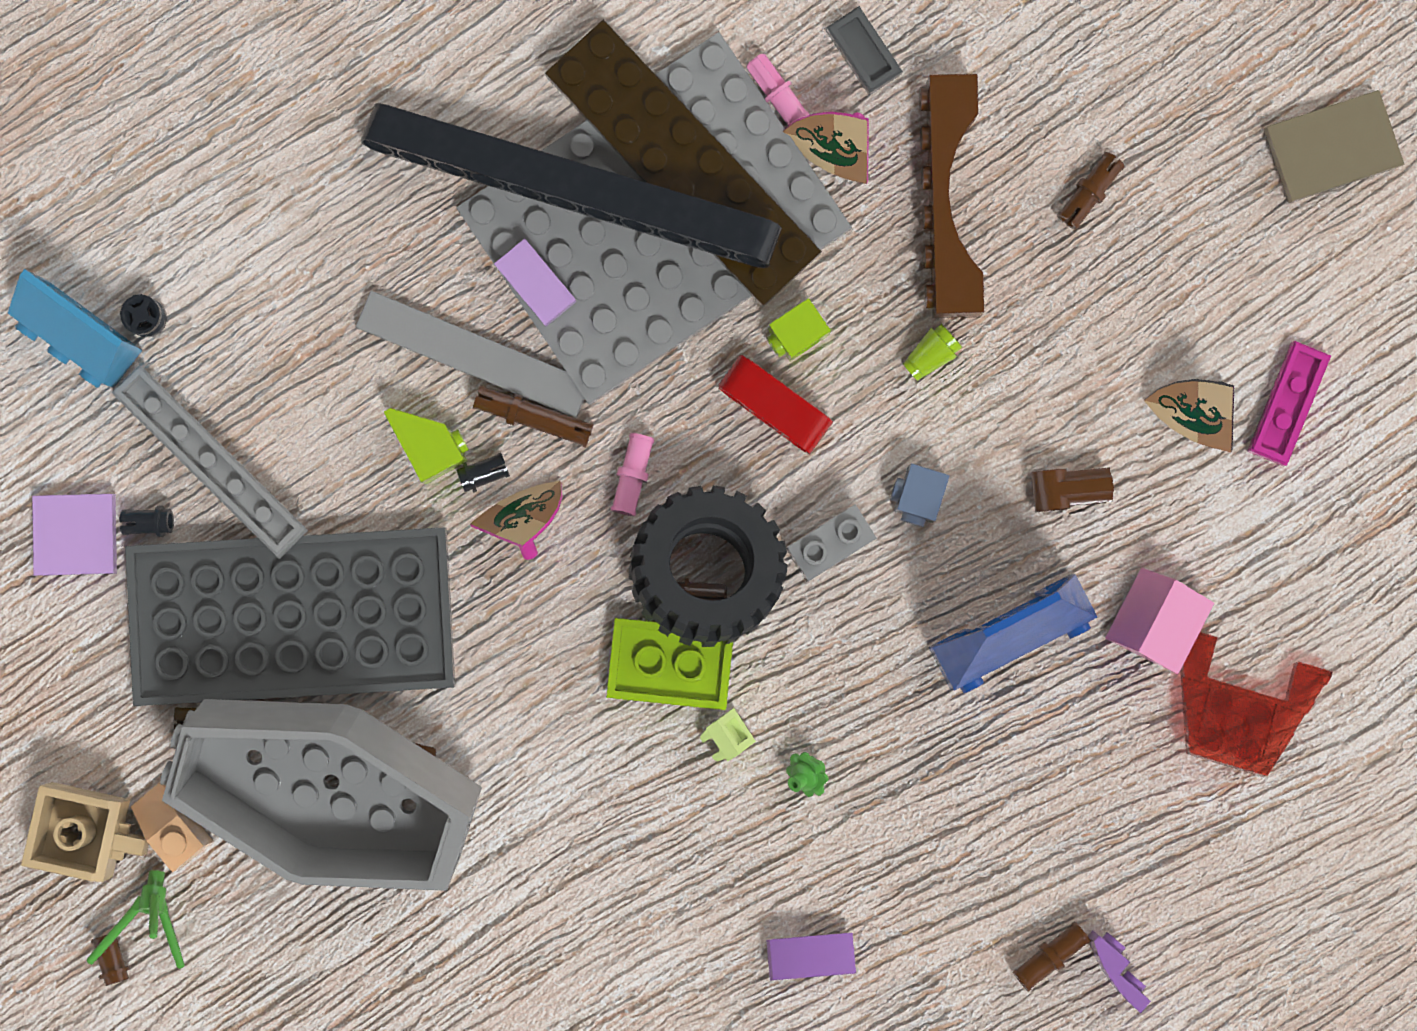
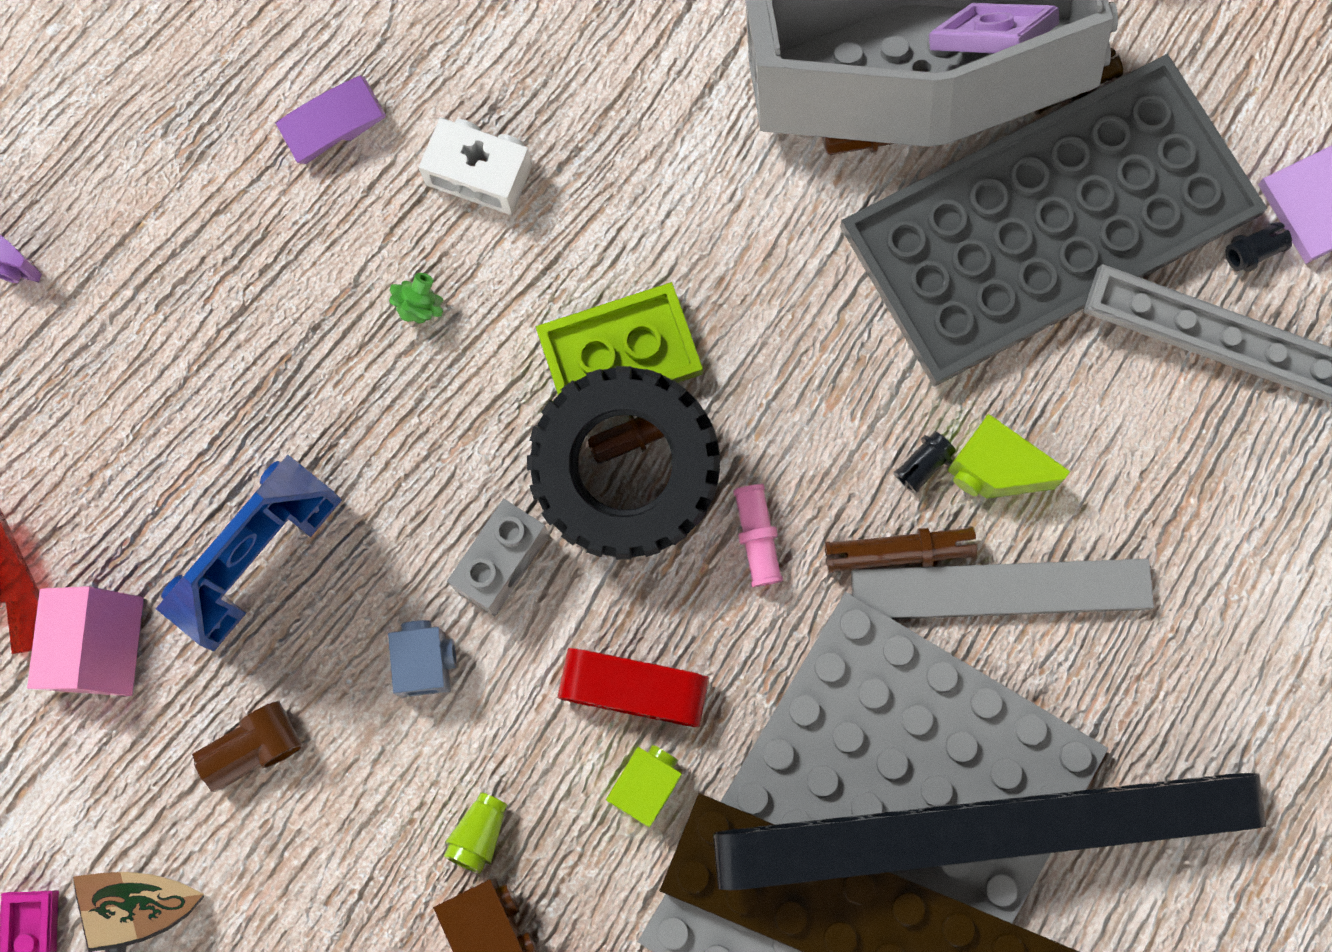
camera: 160 degrees right, 10 degrees down
(266, 775) = (993, 27): none -> lavender tile
(522, 516) = (857, 431): shield -> none
(535, 282) = (975, 698): lavender tile -> none
(729, 735) = (519, 302): yellowish green tile -> none
(736, 871) = (489, 183): none -> white brick
(1051, 956) = (70, 231): reddish brown pin -> none

